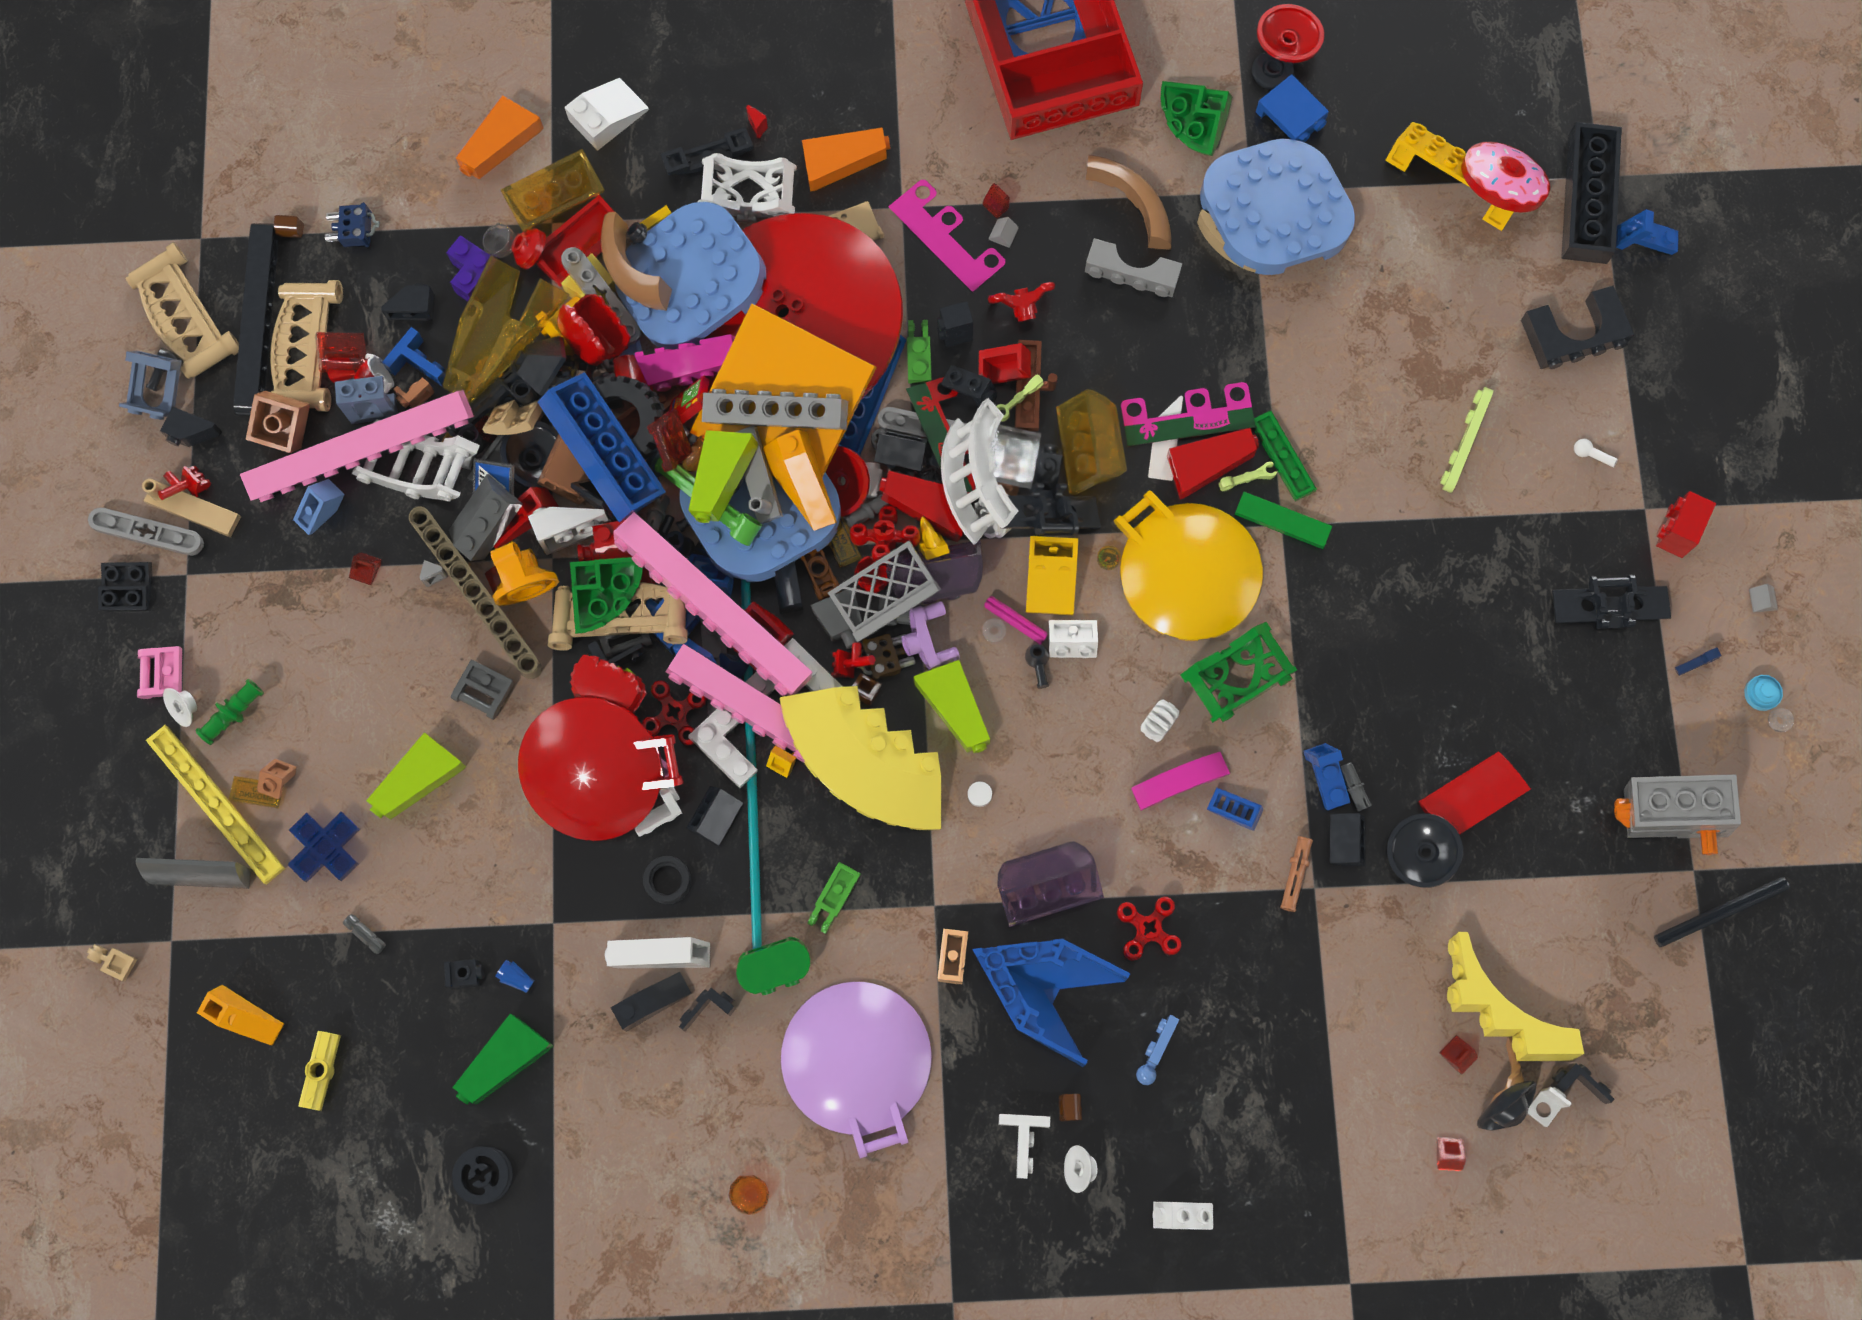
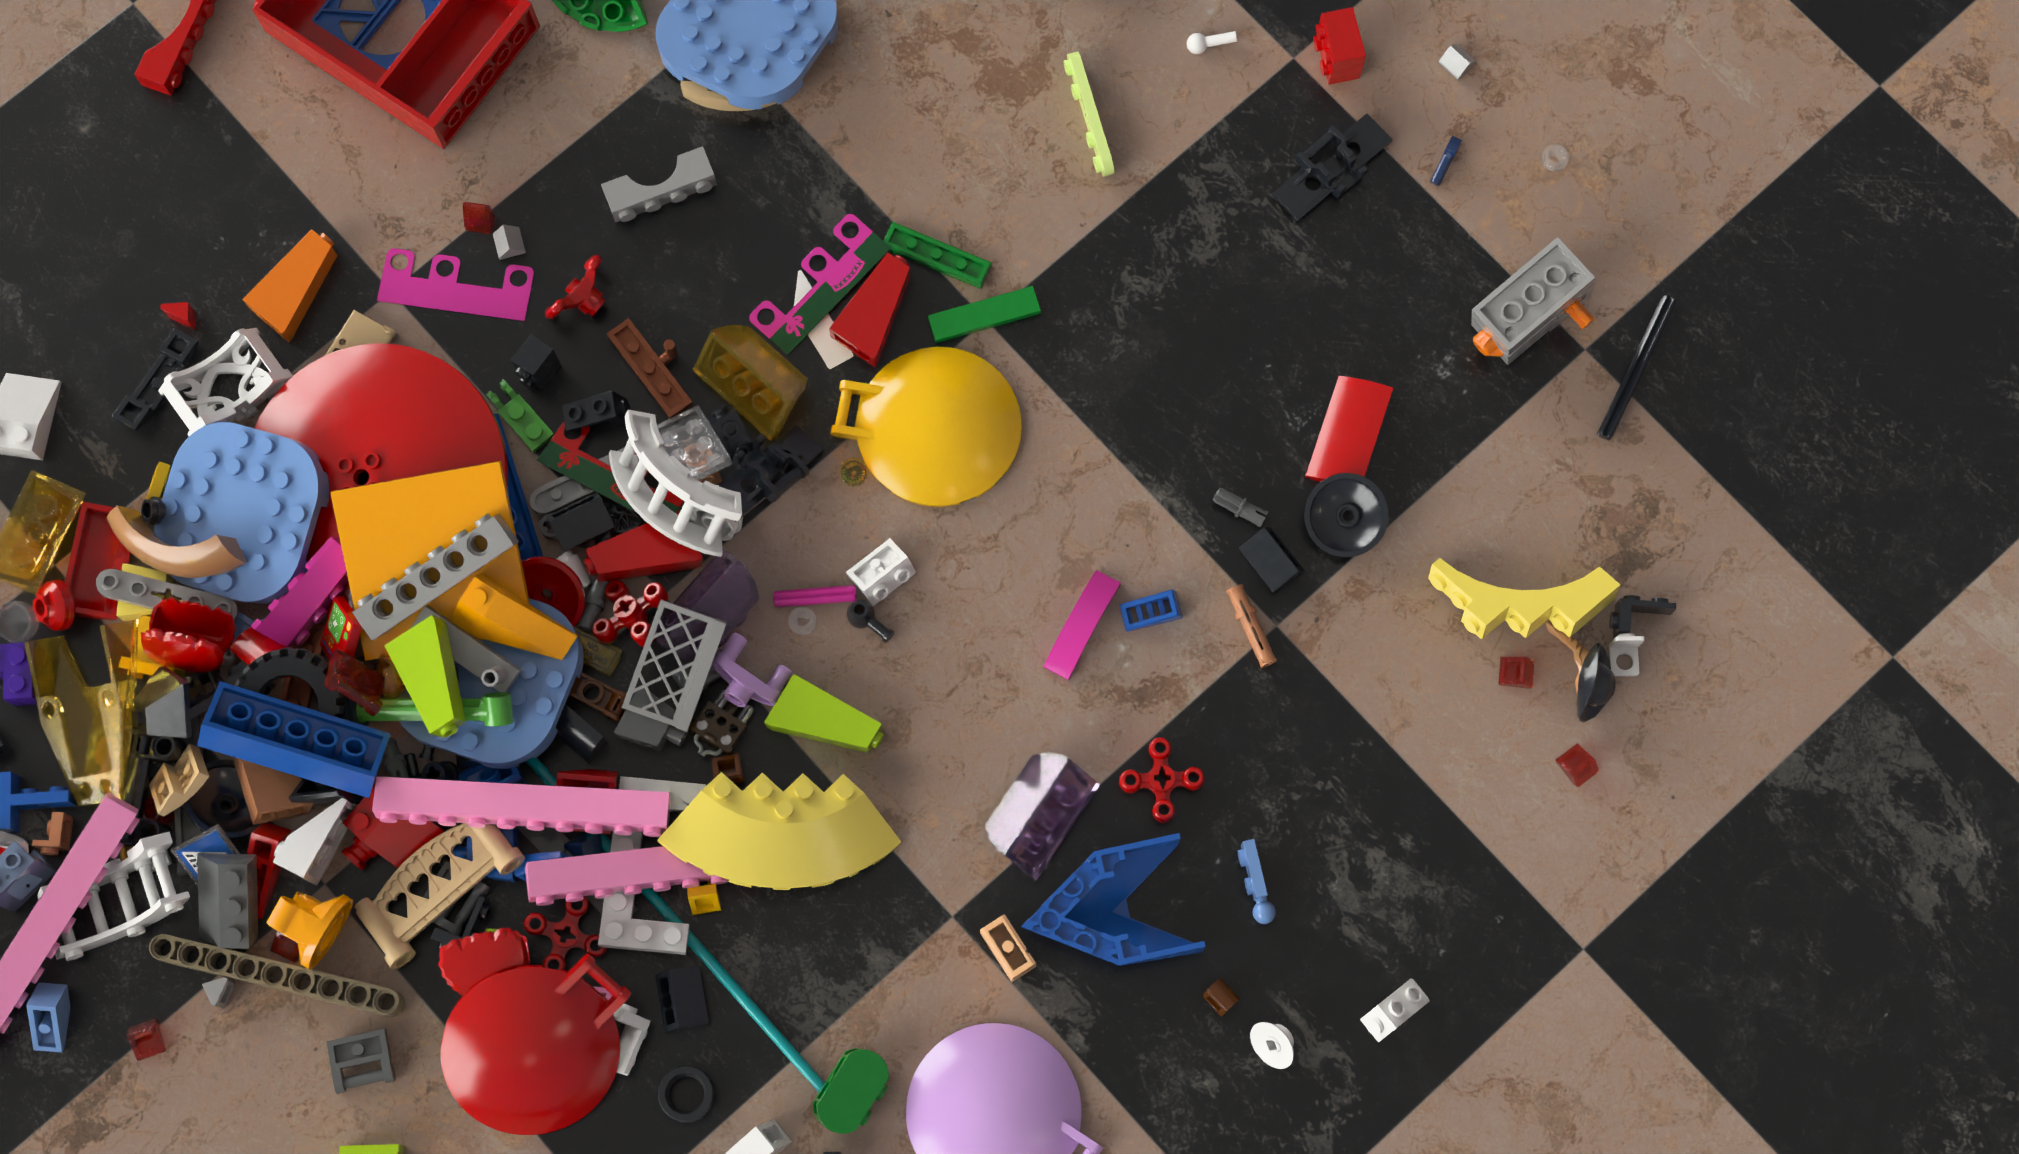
camera: 40 degrees left, 0 degrees up
(602, 590) = (403, 875): green brick -> none
(834, 895) = (854, 980): bright green hinge -> none
(846, 662) = (689, 759): red arm -> none
(866, 582) = (649, 670): red hair -> none
(931, 543) = (680, 586): yellow tile -> none
(979, 794) = (911, 782): white tile -> none
(1005, 363) = (612, 364): red panel -> none
(1025, 1138) = (1203, 1057): white bracket -> none
(1033, 385) = (655, 365): yellowish green piece -> none
(1051, 575) = (815, 528): yellow slope -> none
(1138, 192) = (605, 109): medium nougat brick -> none
(1160, 720) = (1021, 584): white gear -> none
(1229, 482) = (908, 317): yellowish green piece -> none
(1248, 642) = (1046, 448): green fence -> none
(1328, 775) = (1208, 514): blue bracket -> none
(1763, 692) = (1521, 145): medium azure plate -> none

